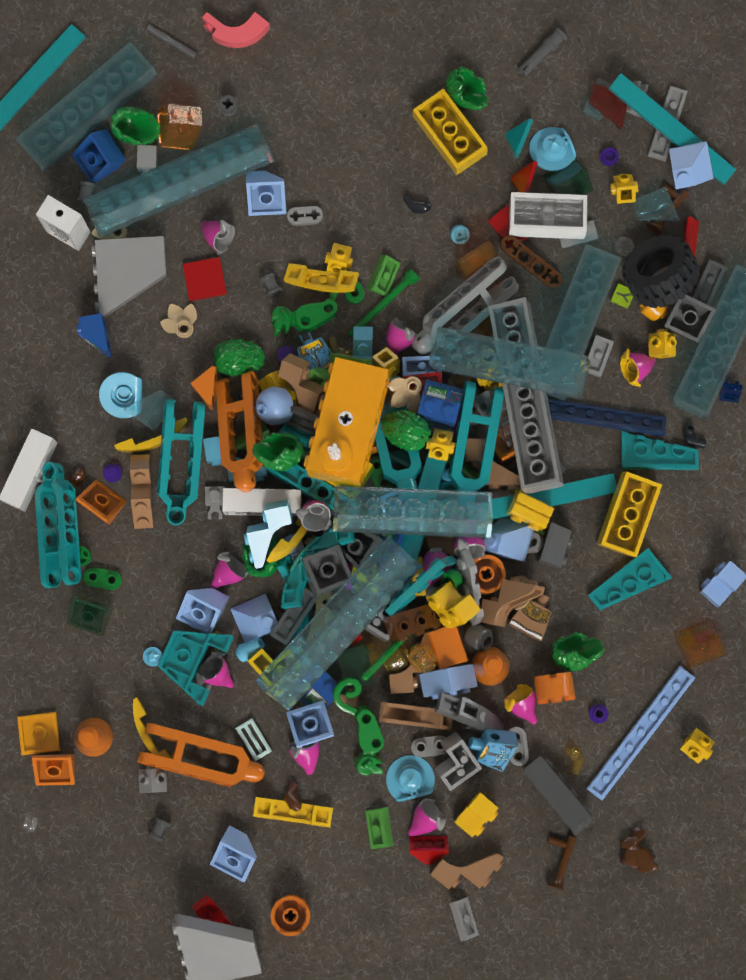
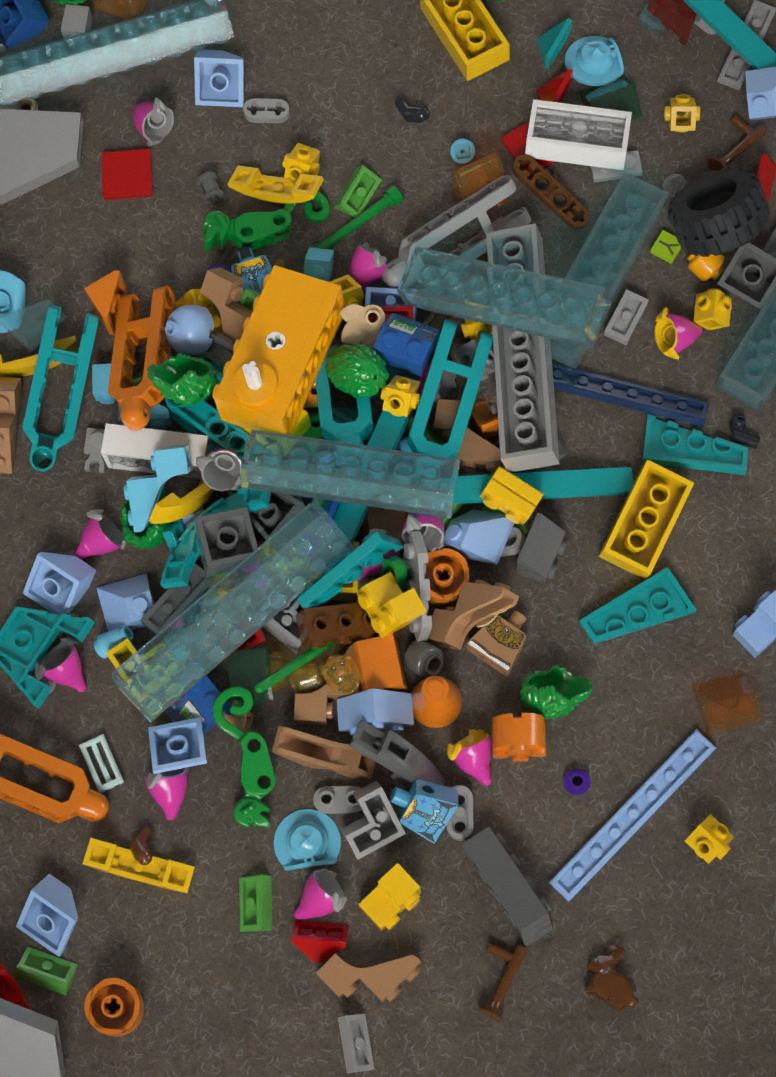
camera: 15 degrees right, 10 degrees down
(177, 318) = (86, 218): tan plate -> none
(236, 893) = (46, 970): none -> bright green slope
(237, 357) = (153, 268): green piece -> none
(577, 759) = (540, 838): clear yellow arm -> none
(609, 156) = (667, 76): dark purple plate -> none
(655, 206) = (720, 140): clear light blue wing -> none

